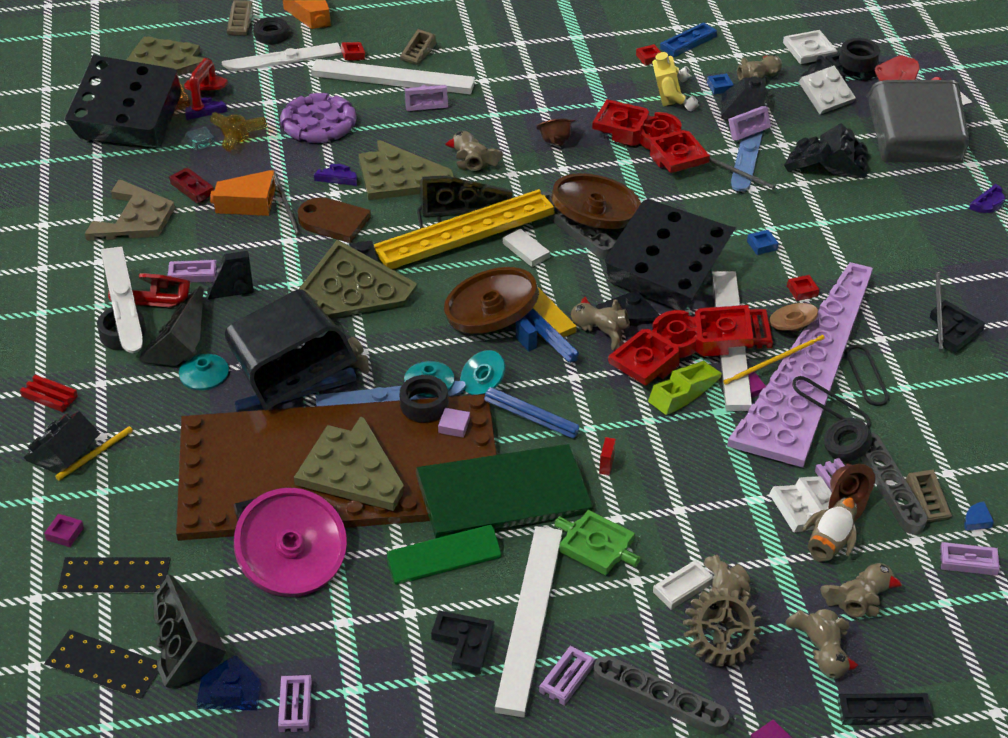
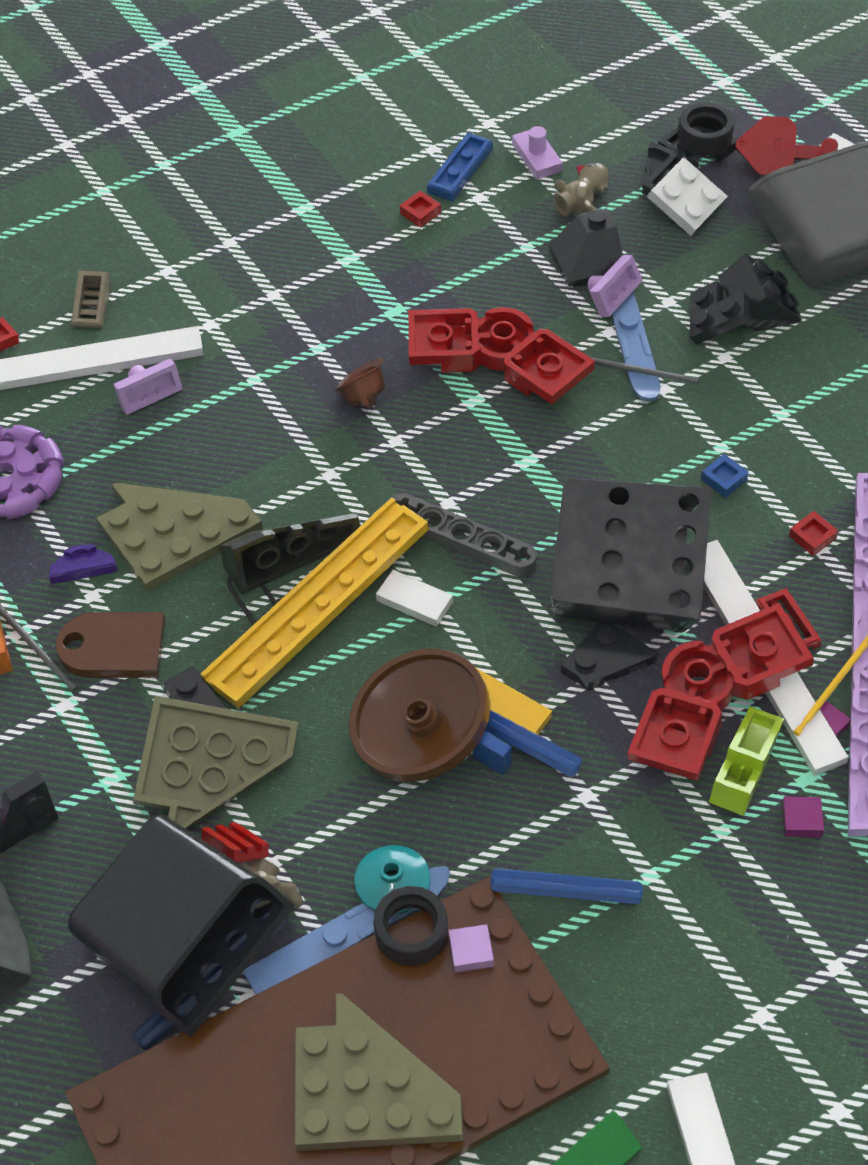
camera: 20 degrees left, 10 degrees up
(204, 372) = (59, 1006): teal dish -> none
(348, 329) = (234, 840): none -> red tile
(472, 152) = (263, 464): dark tan animal -> none
(482, 372) = (452, 840): teal dish -> none
(503, 490) = (595, 1042): dark green tile -> none
(595, 200) = (478, 490): reddish brown dish -> none
(596, 542) = (763, 1074): bright green plate -> none
(607, 456) = (705, 921): red tile -> none
(608, 320) = (593, 687): dark tan animal -> none
(668, 84) = (476, 253): light yellow torso -> none
(704, 427) = (802, 817): none -> magenta tile
(719, 83) = (539, 228): blue tile -> none
(743, 43) = (537, 152): none -> lavender tile
(794, 316) = (831, 590): medium nougat dish -> none
(809, 46) = (627, 130): white plate -> none

